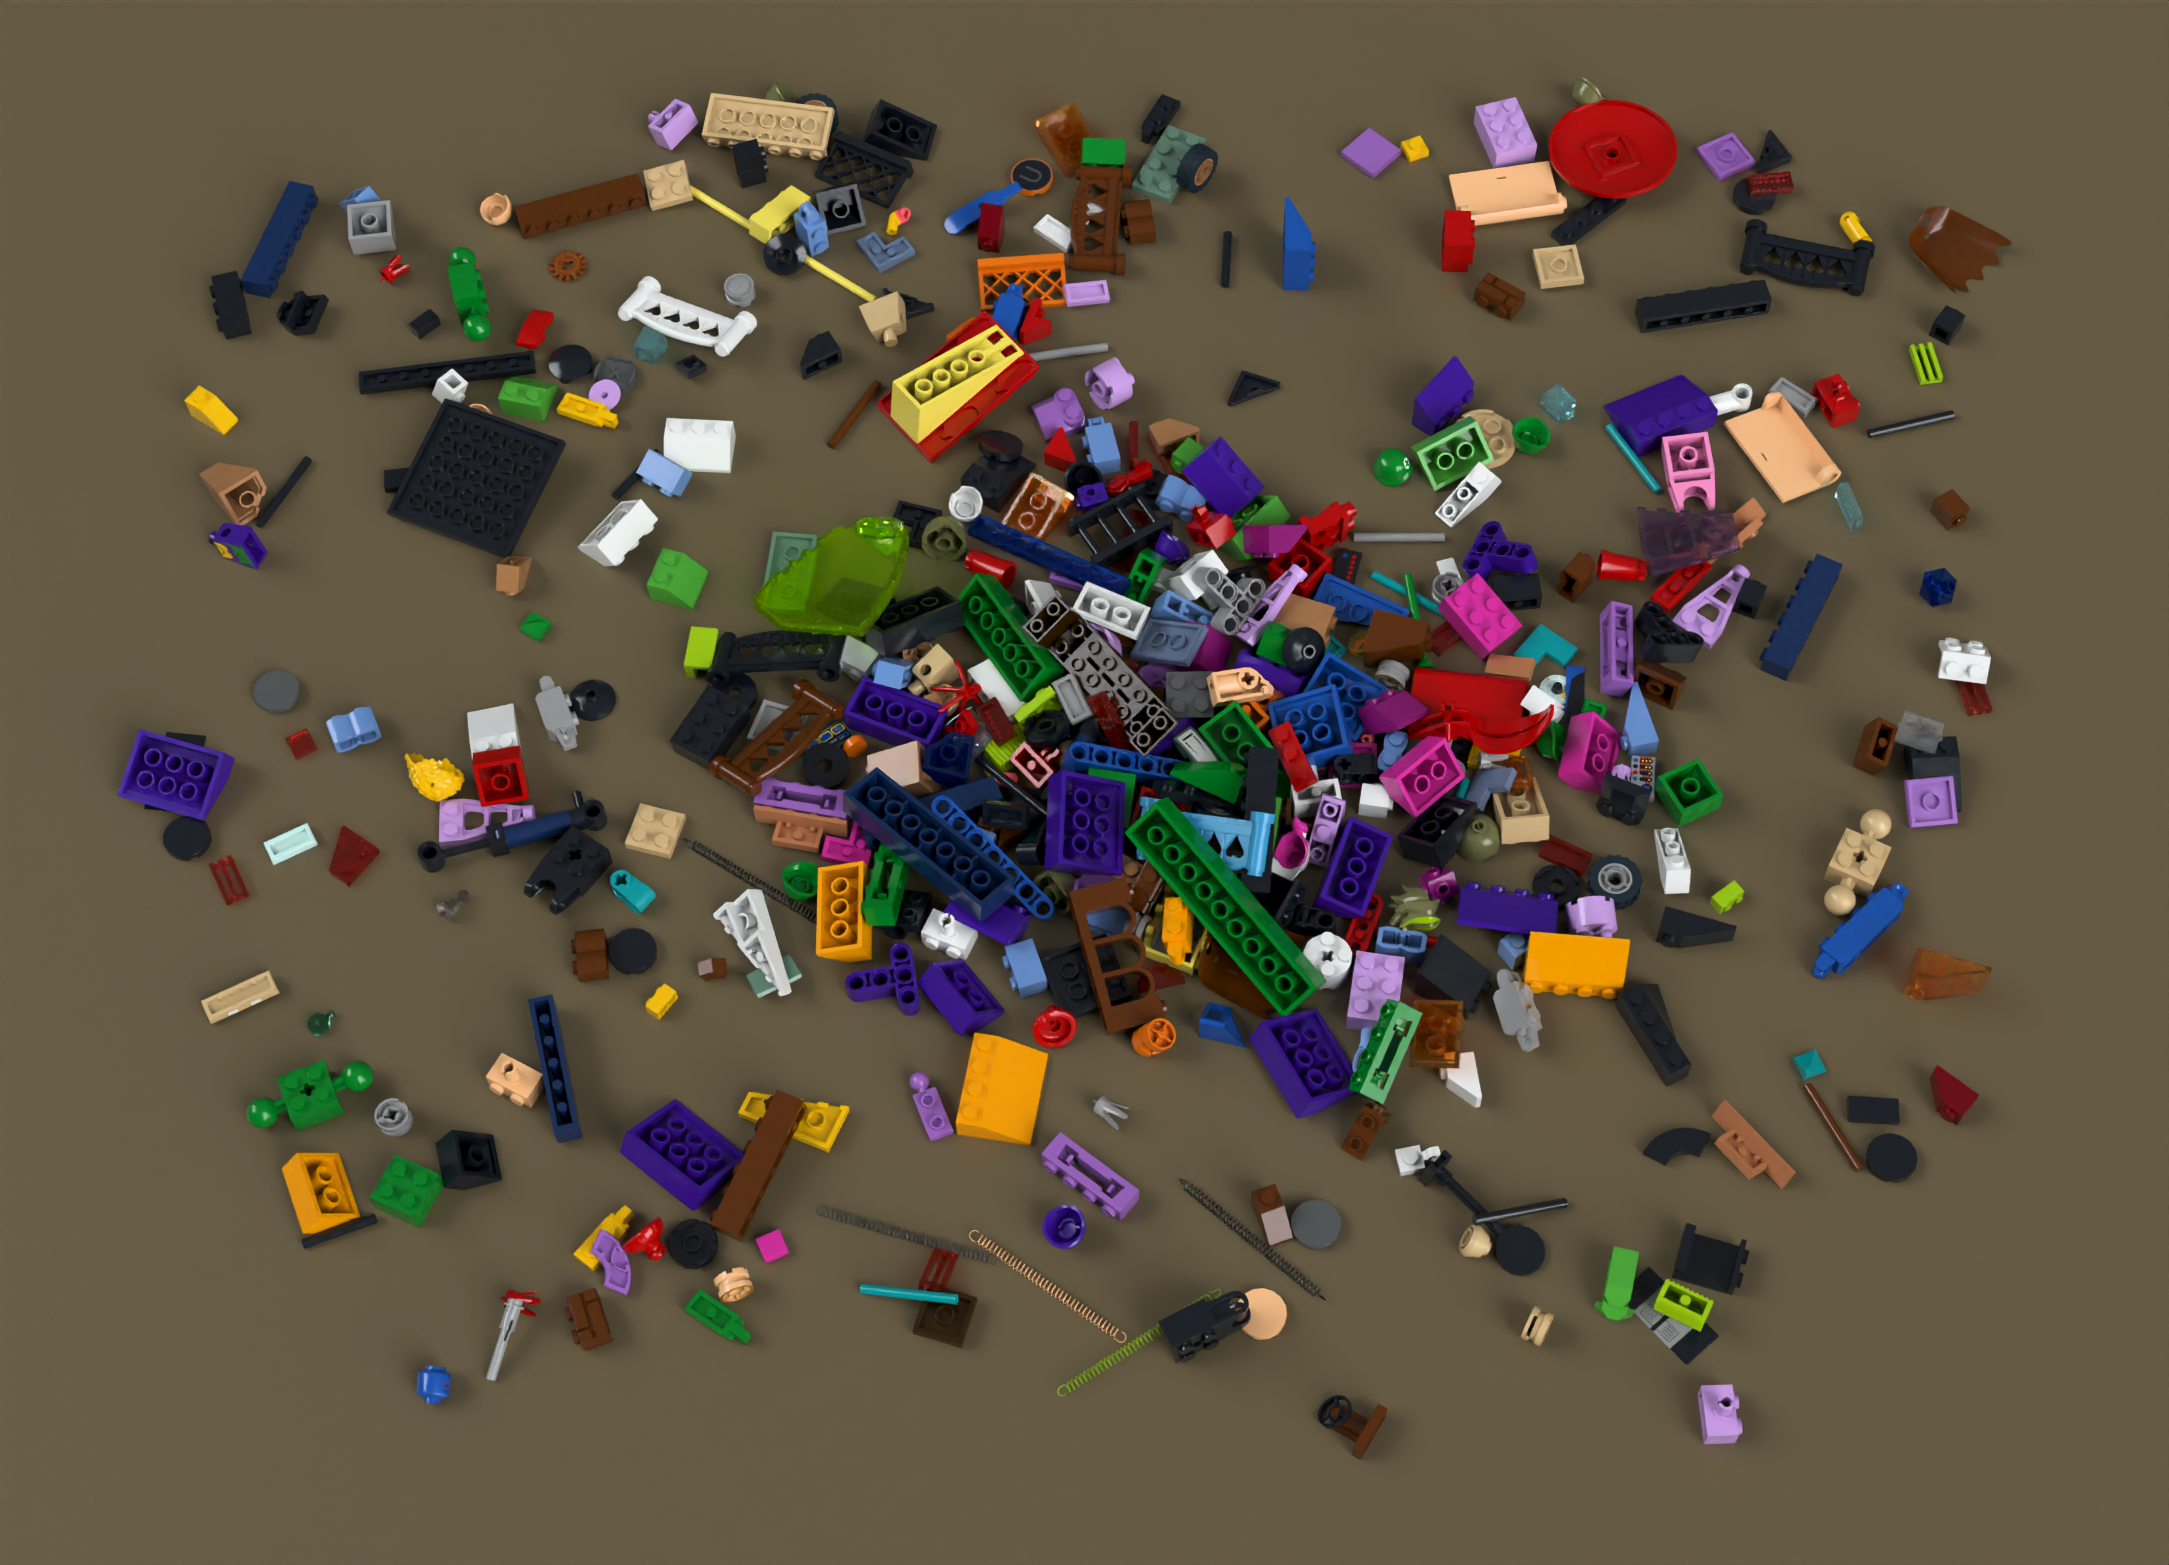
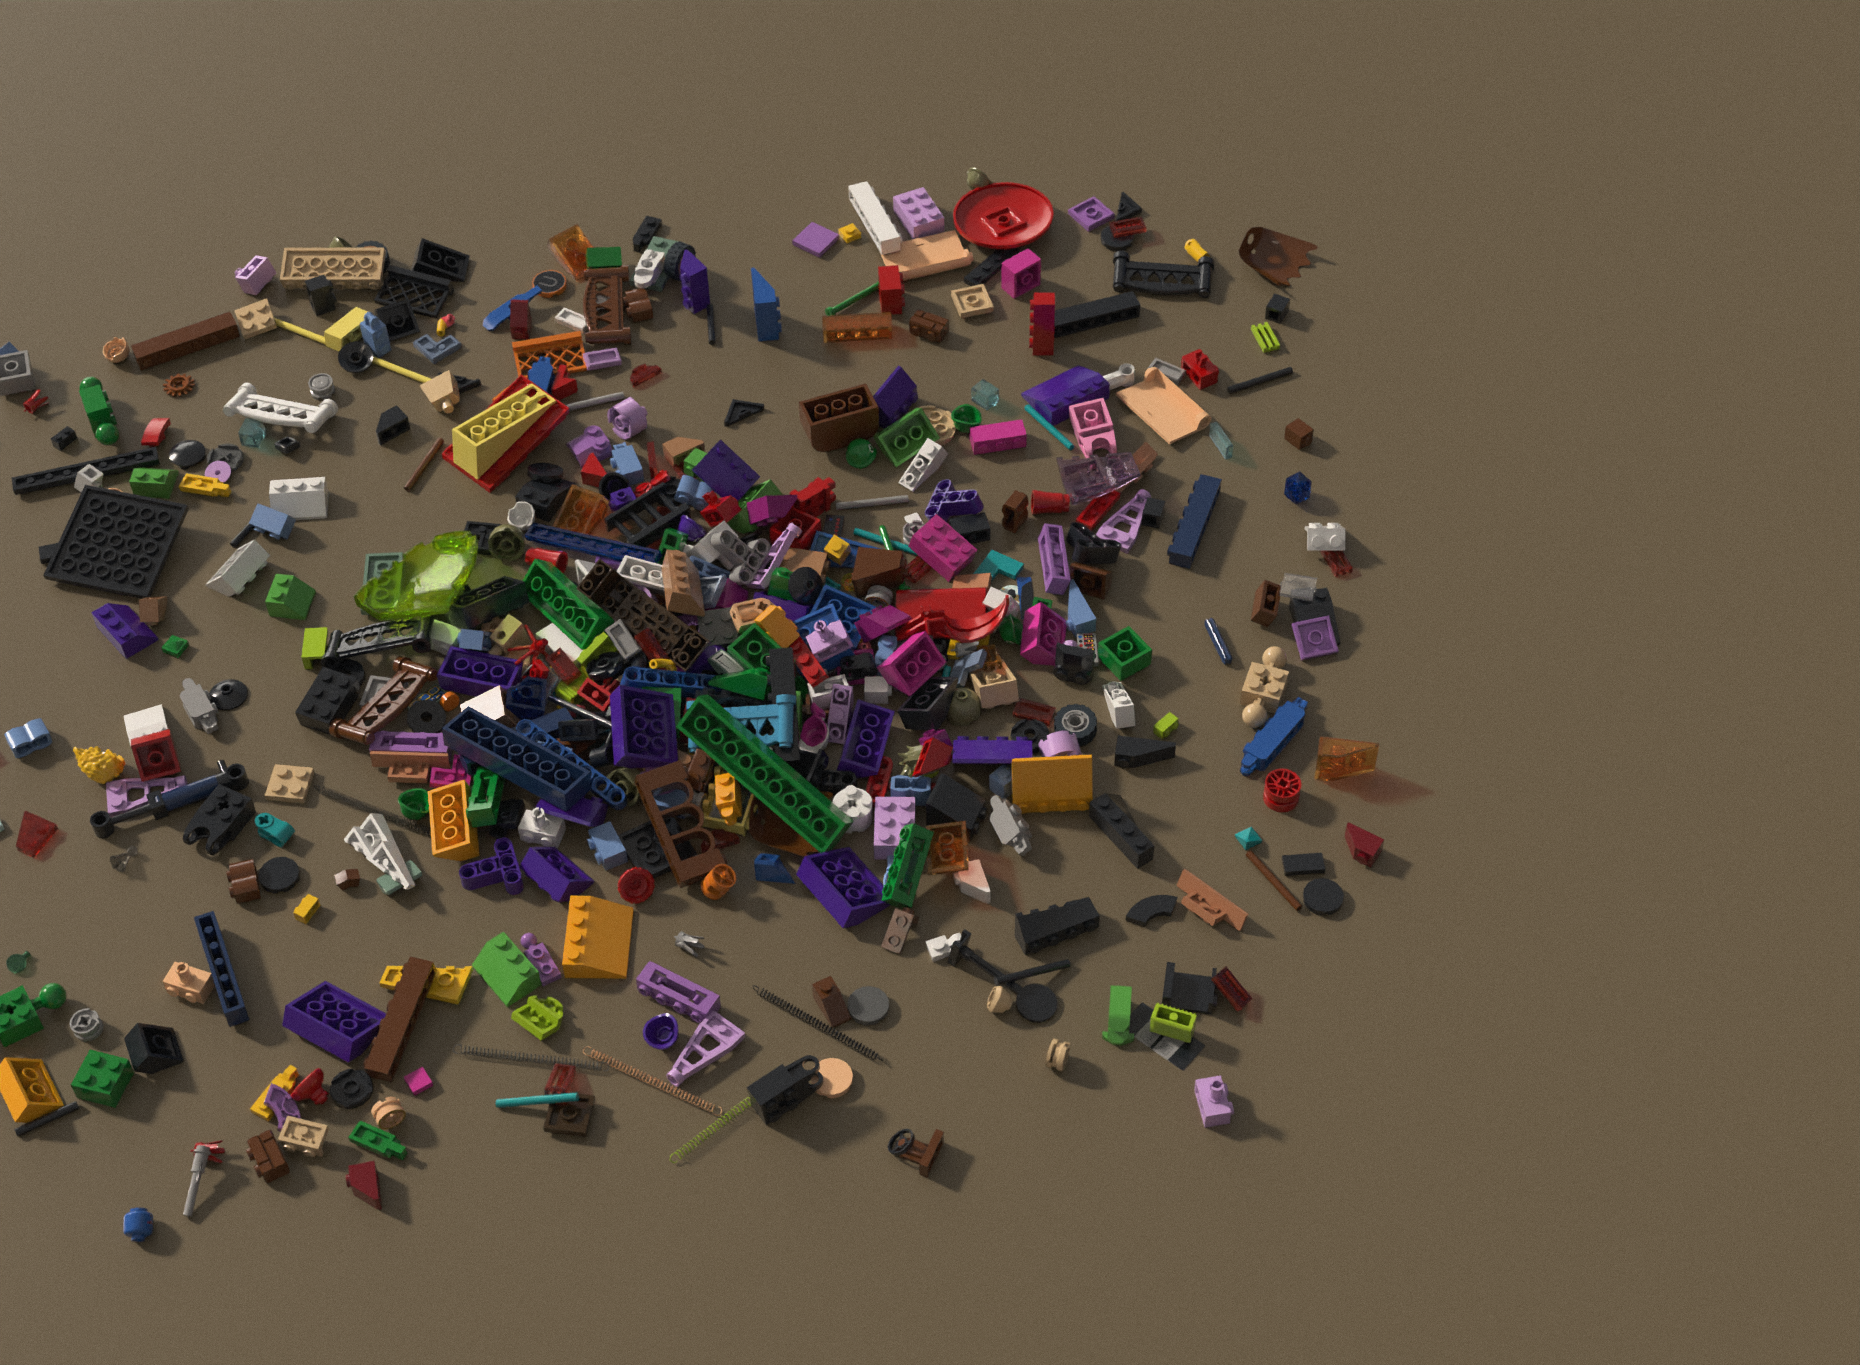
camera: 10 degrees left, 10 degrees down
(476, 595) = (123, 628): none -> dark purple slope
(632, 1300) = (303, 1136): none -> tan bracket
(698, 1370) = (364, 1182): none -> dark red slope
(888, 1116) = (506, 969): none -> bright green slope
(923, 1183) = (540, 1016): none -> lime slope
(1115, 739) = (662, 663): none -> yellow arm
(1135, 319) = (643, 373): none -> clear red tile
(1137, 1235) = (721, 1030): none -> lavender plate
(1152, 634) = (682, 584): none -> medium nougat slope
(1157, 174) = (649, 268): none -> white piece
(1211, 204) = (694, 283): none -> dark purple slope
(1262, 709) = (777, 626): none -> light orange brick
(1324, 735) = (828, 640): none -> lavender brick
(1348, 603) = (837, 549): none -> yellow brick
(1372, 419) = (839, 417): none -> reddish brown brick
(1379, 260) = (832, 311): none -> green bar
(1408, 287) = (857, 327): none -> clear orange brick
(1432, 911) = (932, 757): none -> red slope
(1449, 133) = (875, 218): none -> white brick
(1556, 1152) = (1055, 924): none -> black wedge
(1567, 466) = (998, 437): none -> dark pink brick
(1625, 236) = (1021, 273): none -> dark pink brick
(1643, 318) = (1043, 323): none -> red brick
(1761, 1269) = (1231, 989): none -> clear red tile
(1808, 788) = (1218, 641): none -> dark blue axle
(1860, 1007) = (1282, 790): none -> red wheel

